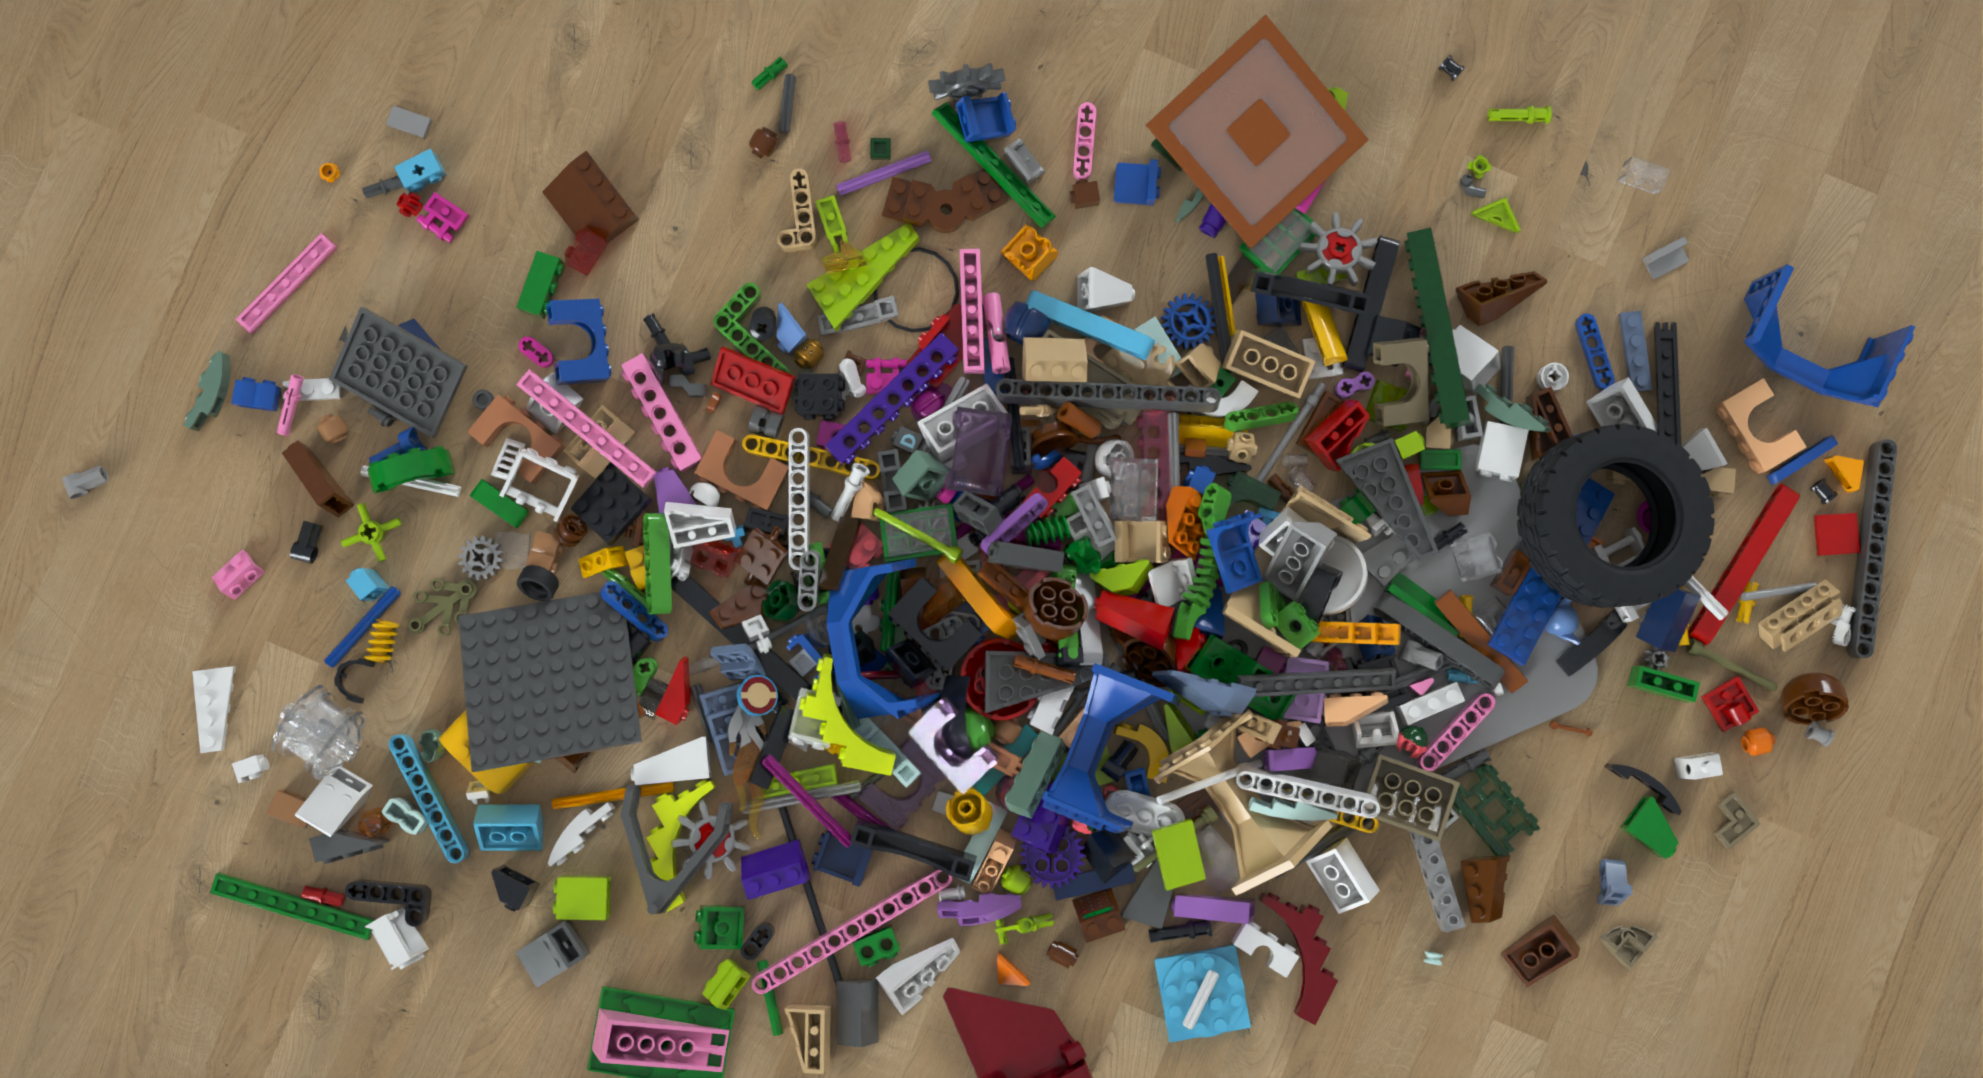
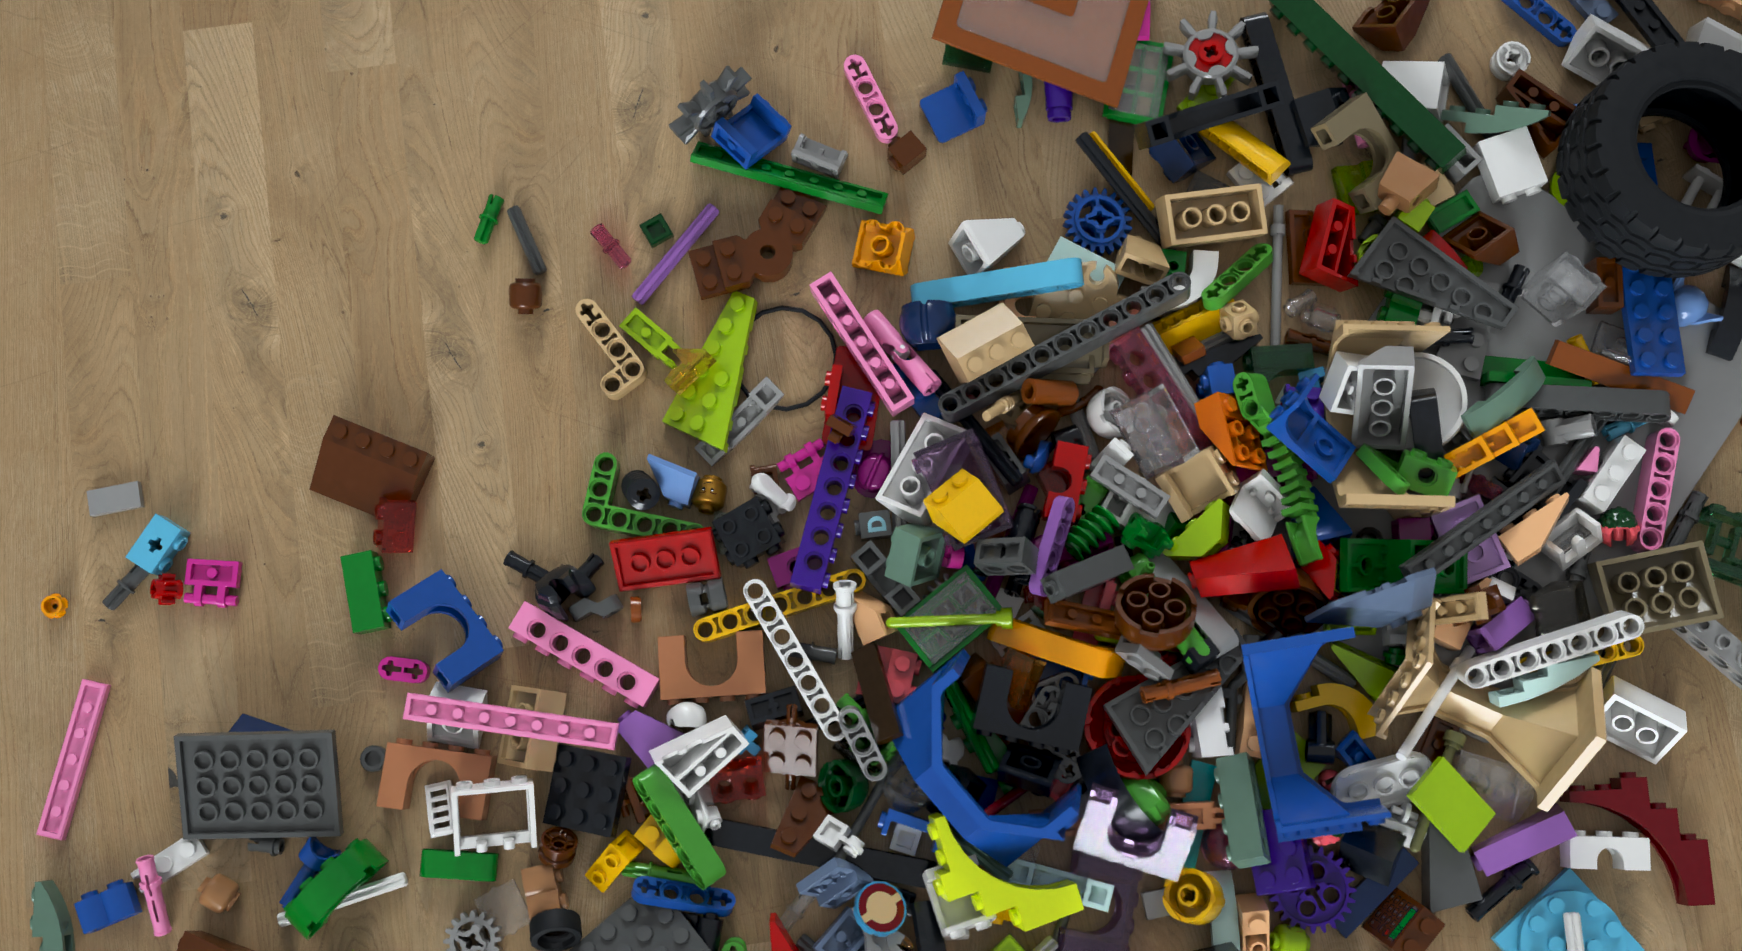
camera: 25 degrees left, 5 degrees down
(920, 361) = (840, 428): none -> reddish brown tile
(969, 462) = (962, 506): none -> yellow slope
(1354, 385) = (1312, 187): medium lavender axle -> none
(1382, 544) = (1457, 336): none -> black pin
(1388, 609) = (1505, 401): none -> sand green slope
(1412, 421) = (1405, 185): none -> medium nougat torso

